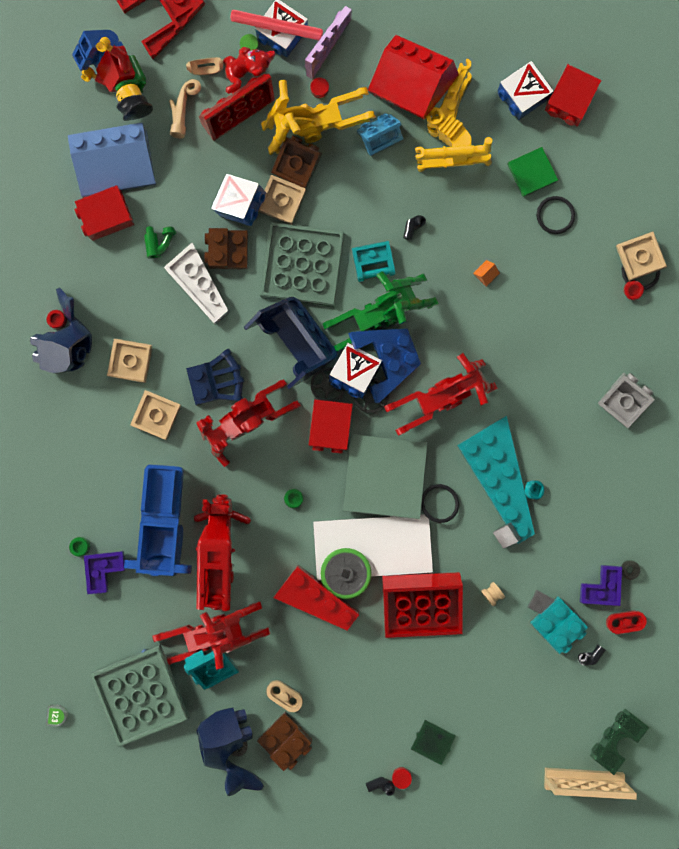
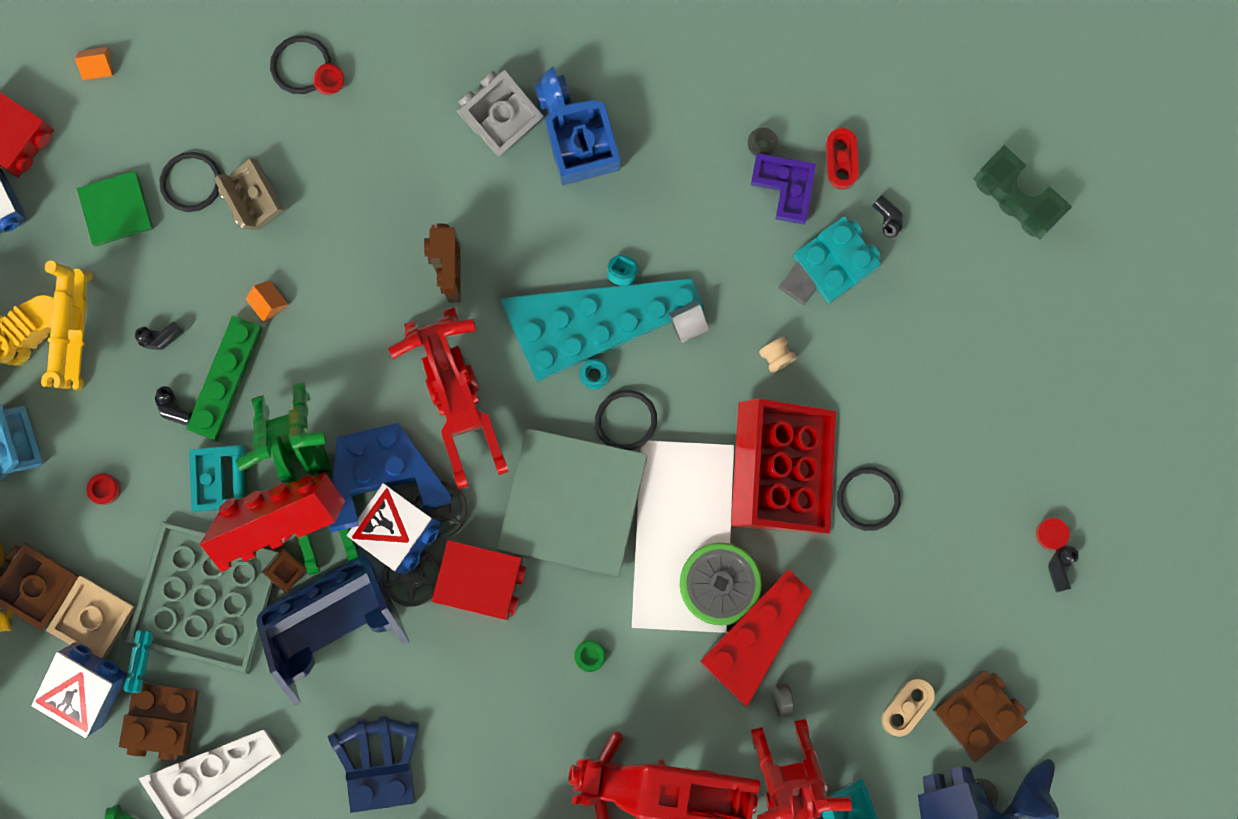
camera: 85 degrees left, 5 degrees down
(242, 420) = (447, 721): red piece -> none
(259, 231) = (138, 661): none -> teal axle
(280, 619) = (783, 699): none -> dark grey tile
(323, 308) = (284, 570): none -> reddish brown tile
(351, 296) = (271, 518): none -> red wedge
(359, 193) = (103, 489): none -> red tile
(426, 663) = (868, 527): none -> black piece
(433, 742) = (1000, 477): clear green piece -> none
(435, 255) = (224, 378): none -> green plate
(454, 211) = (158, 339): none -> black arm
(472, 478) = (594, 364): none -> teal plate
(528, 378) = (445, 255): none -> reddish brown plate
(551, 252) = (249, 196): none -> dark tan bracket
(588, 783) = (1081, 248): tan fence -> none
(619, 451) = (577, 132): none -> blue brick
(623, 144) = (94, 63): none -> orange slope
(641, 256) = (277, 60): tan plate -> none

